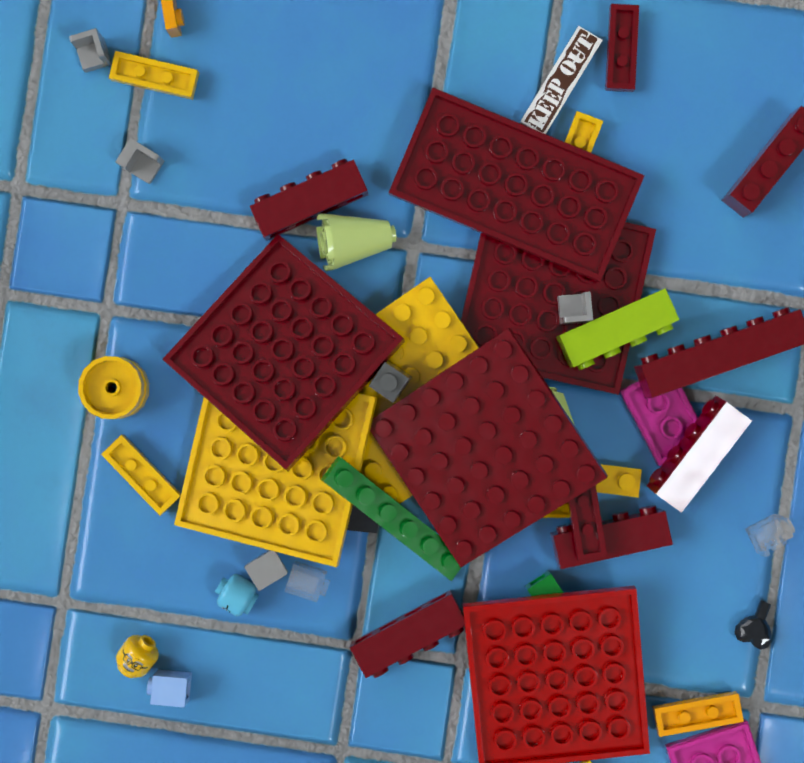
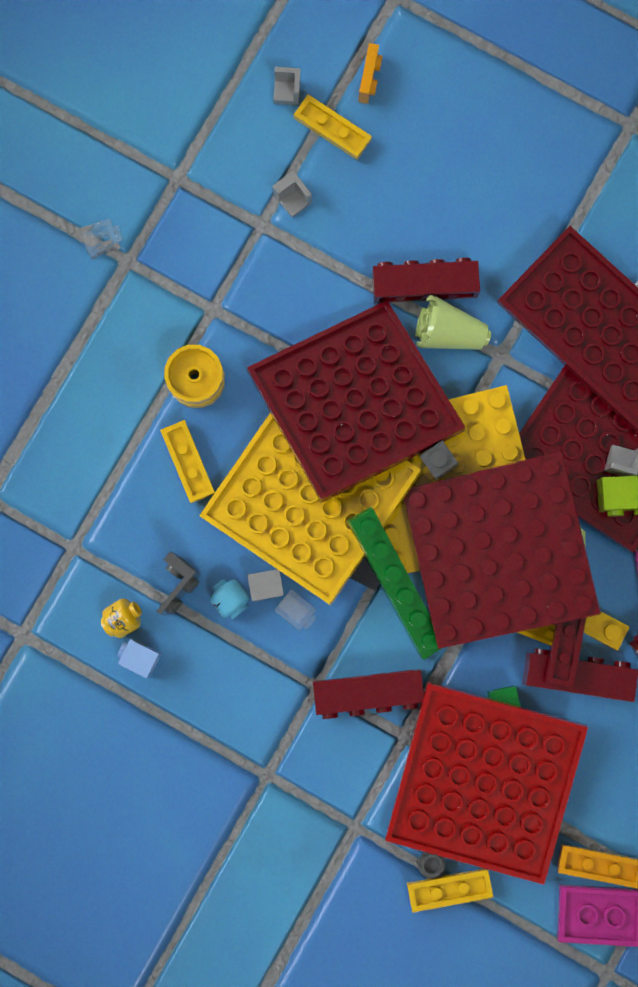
camera: 20 degrees right, 5 degrees down
(184, 587) = (179, 569): none -> dark grey bracket

